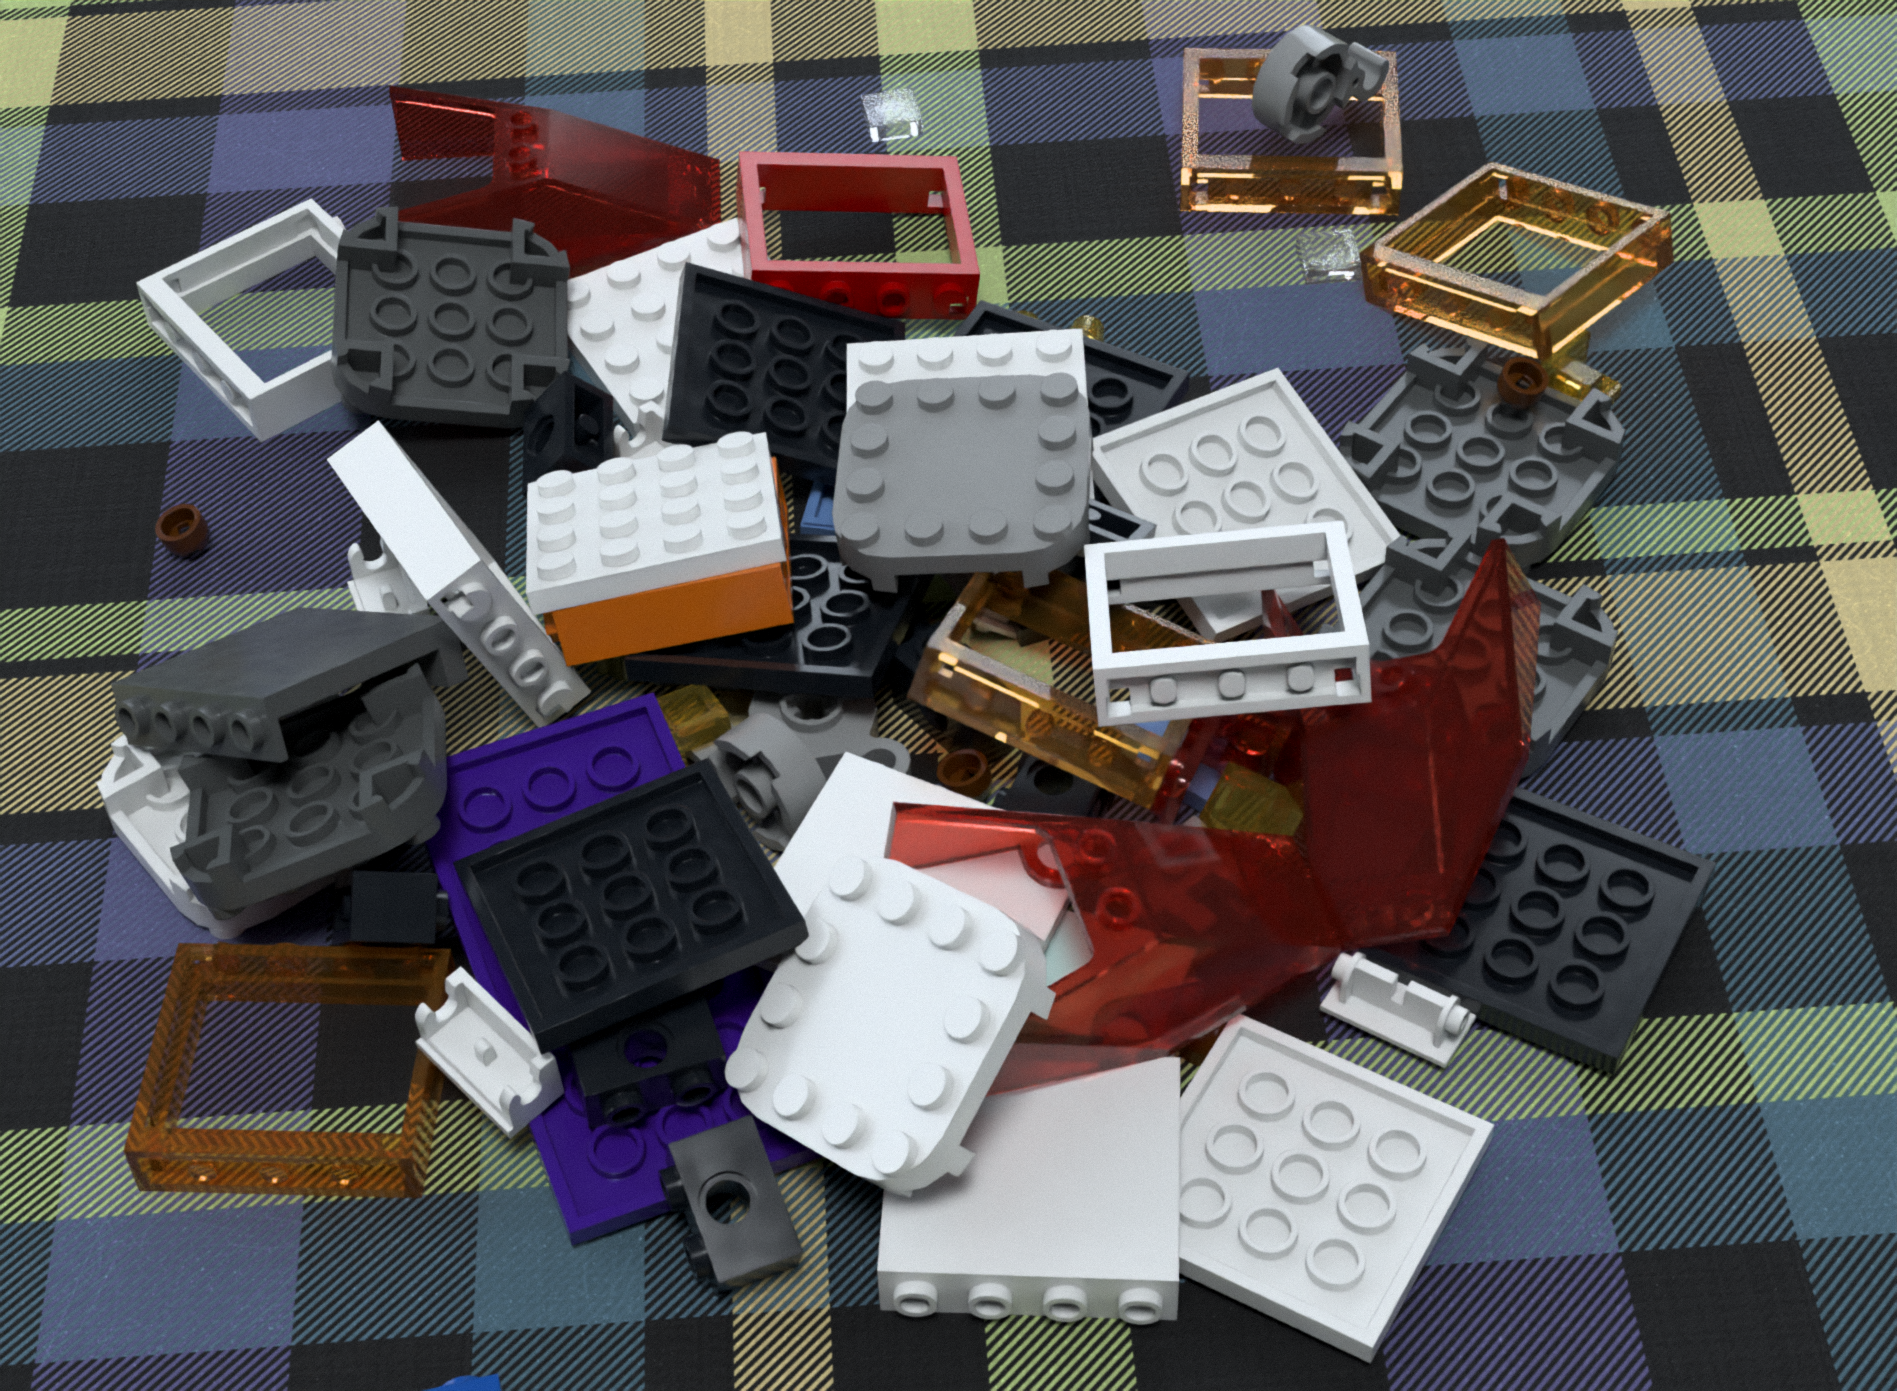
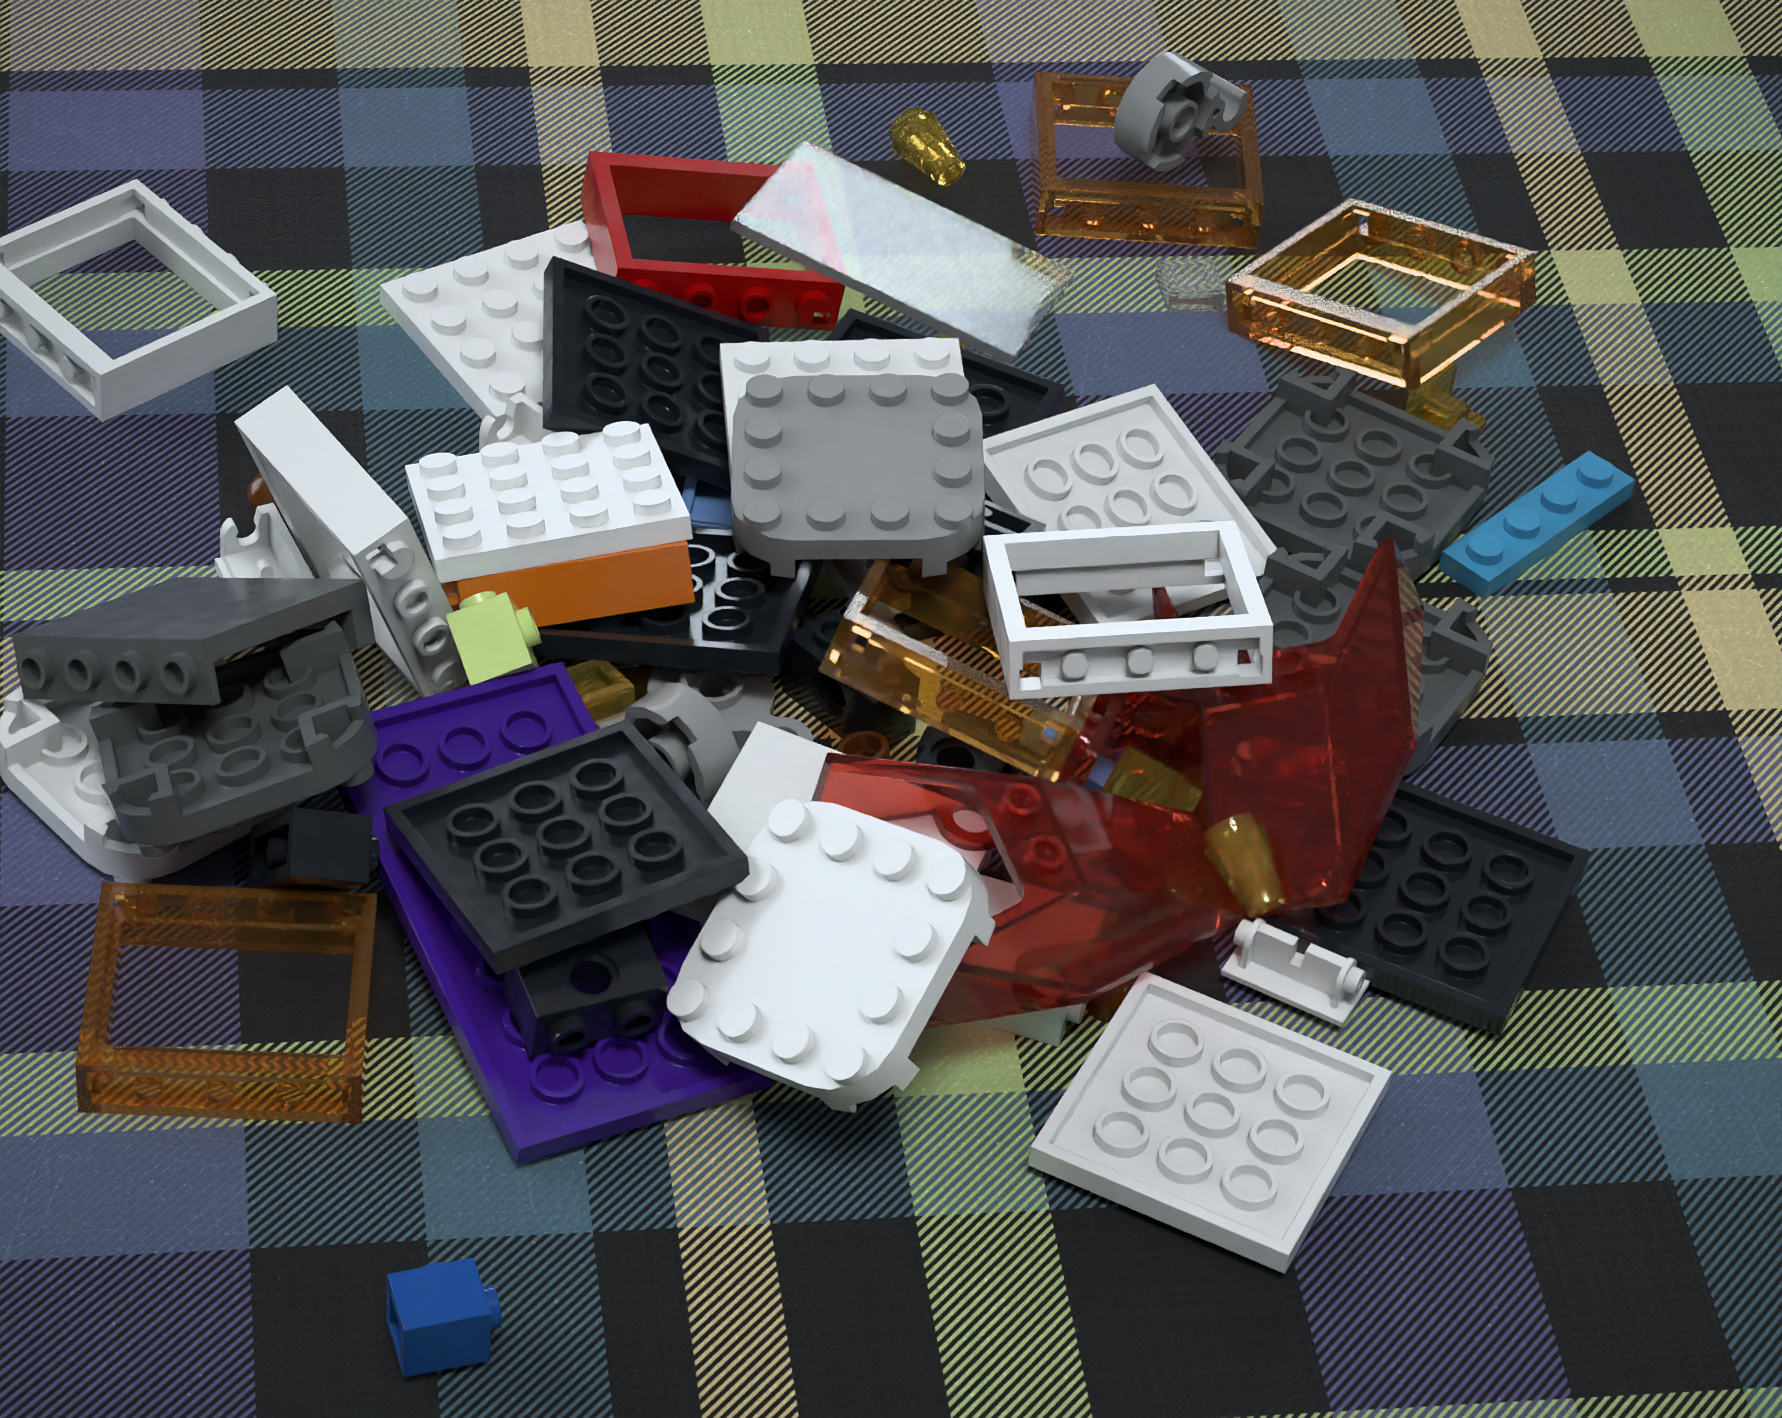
camera: 10 degrees left, 5 degrees down
(176, 518) = (35, 489): reddish brown hinge -> none
(447, 321) = (303, 307): dark grey plate -> none
(488, 1055) = (433, 982): white hinge -> none
(567, 429) = (432, 415): black brick -> none
(578, 180) = (400, 192): clear red windscreen -> none
(586, 669) = (493, 636): none -> yellowish green brick
(732, 1162) = (680, 1086): black brick -> none
(891, 114) = (731, 125): clear tile -> none
(1043, 238) = (904, 251): none -> clear piece
(1055, 1212) = (983, 1139): white panel -> none
(1075, 125) = (926, 145): none -> clear yellow cone
(1343, 894) = (1245, 862): none -> clear yellow cone
(1510, 377) = (1392, 397): reddish brown hinge -> none
(1669, 496) = (1536, 524): none -> dark azure plate

